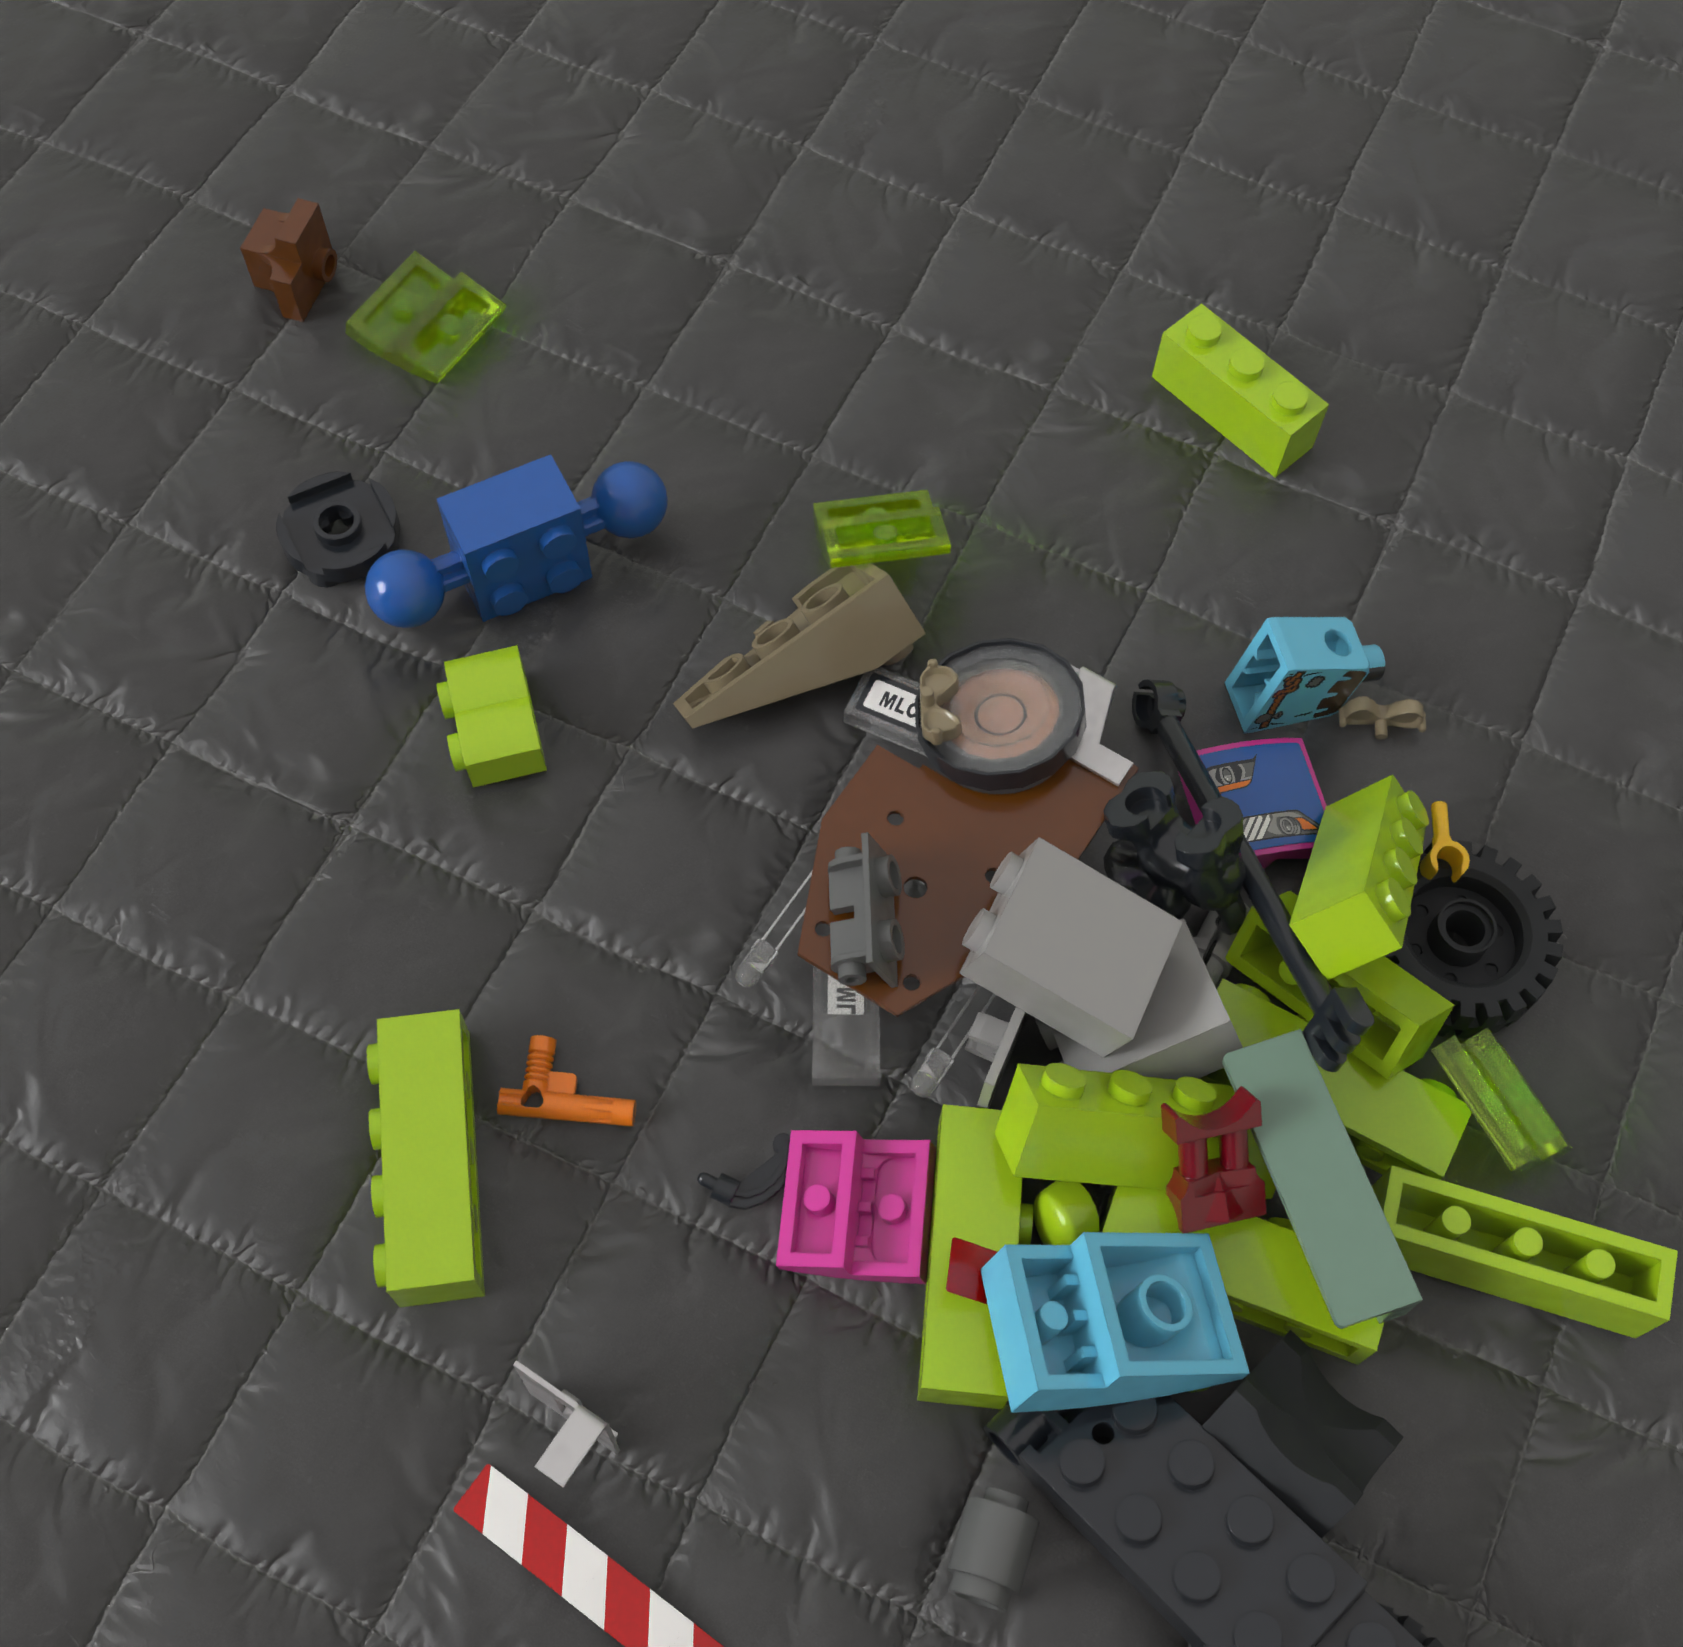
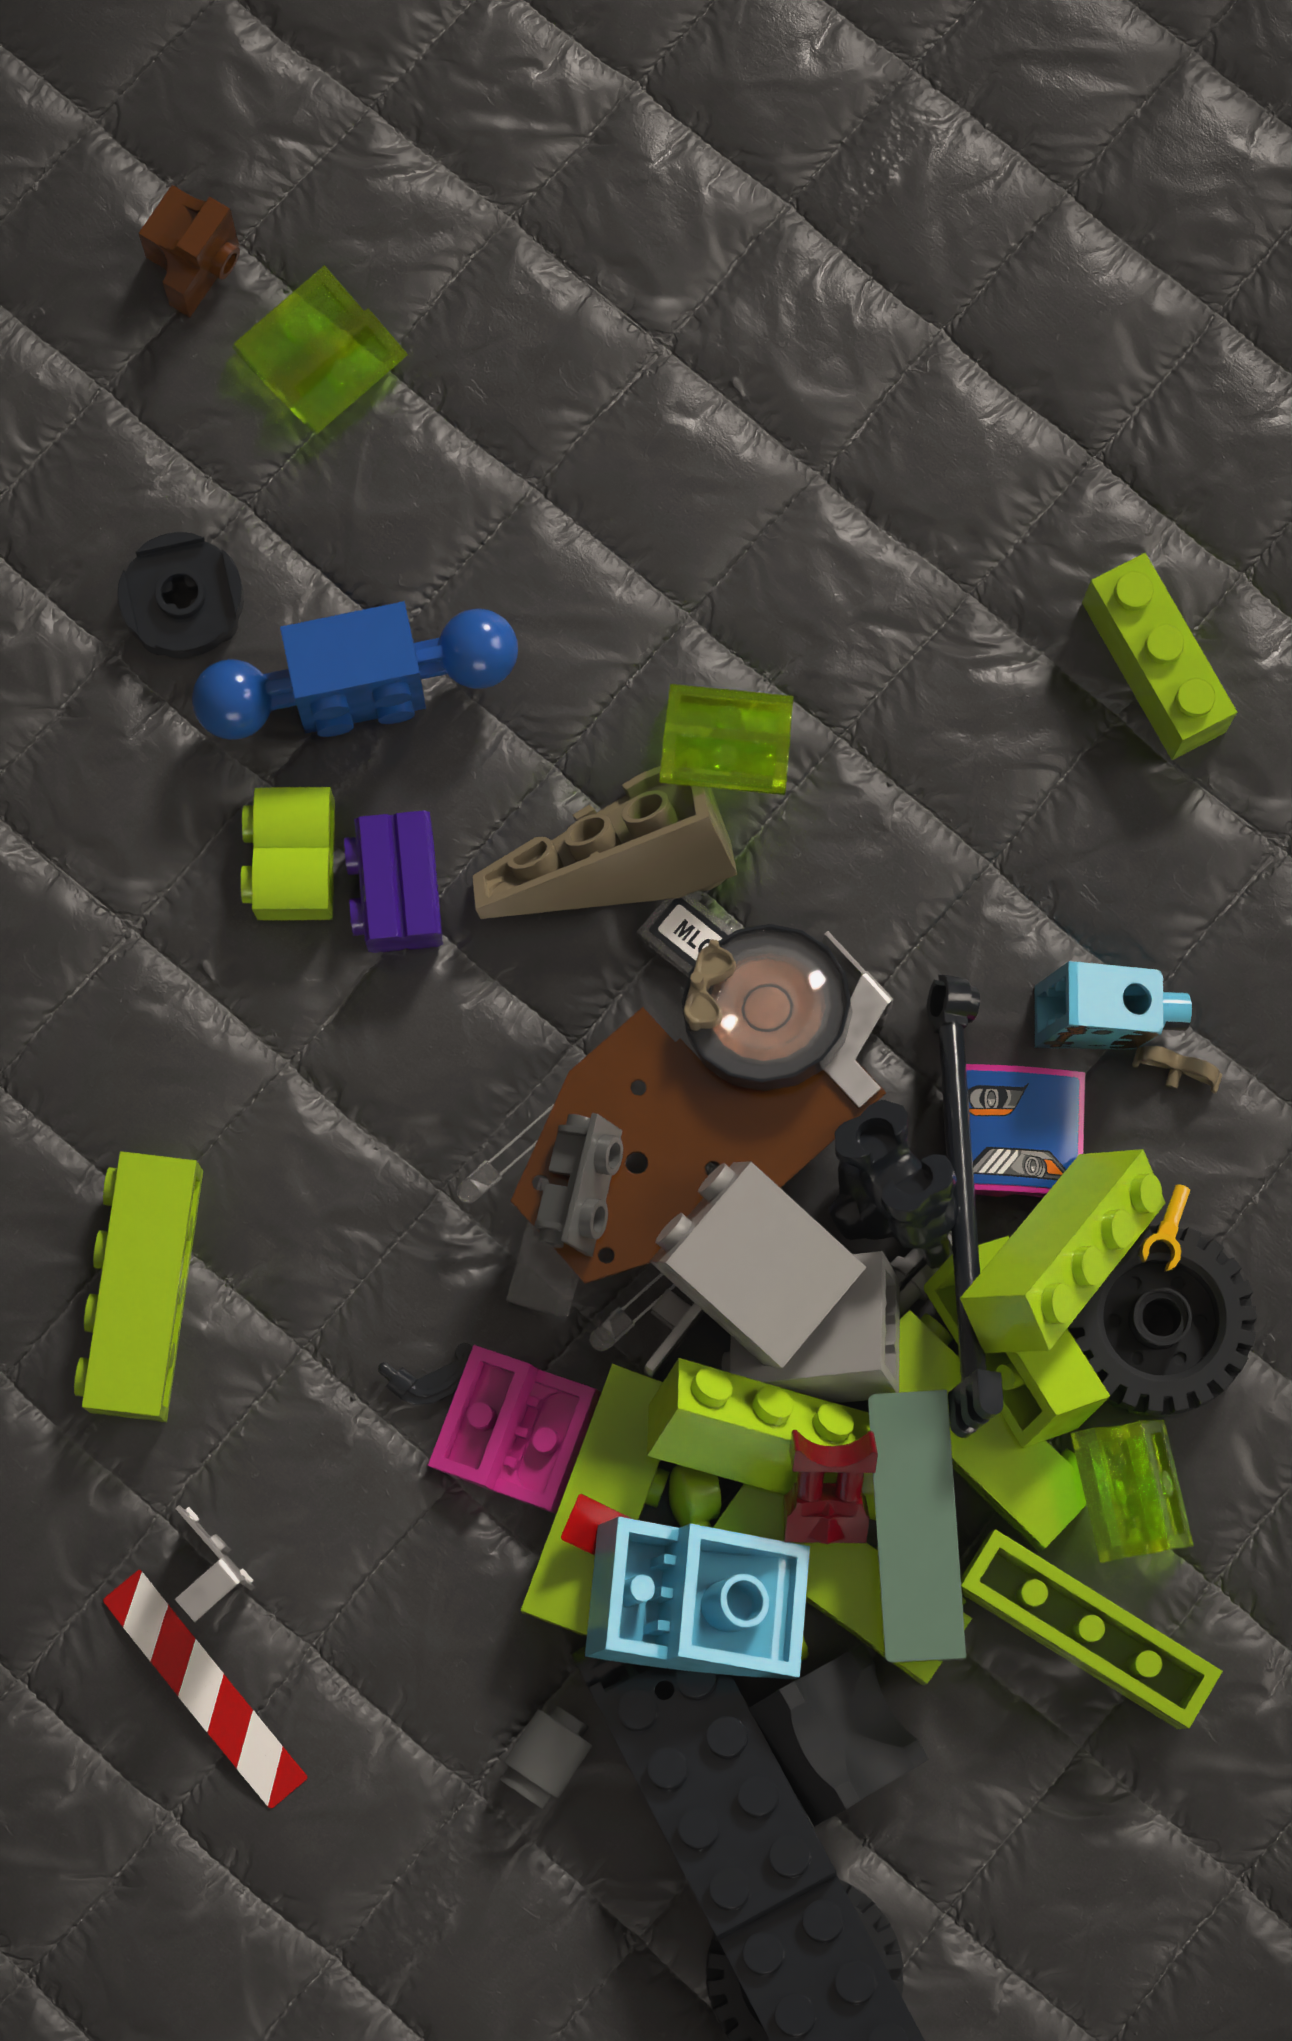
camera: 15 degrees right, 15 degrees up
(559, 1093) = (272, 1254): orange hose -> none
(603, 718) = (396, 882): none -> dark purple brick

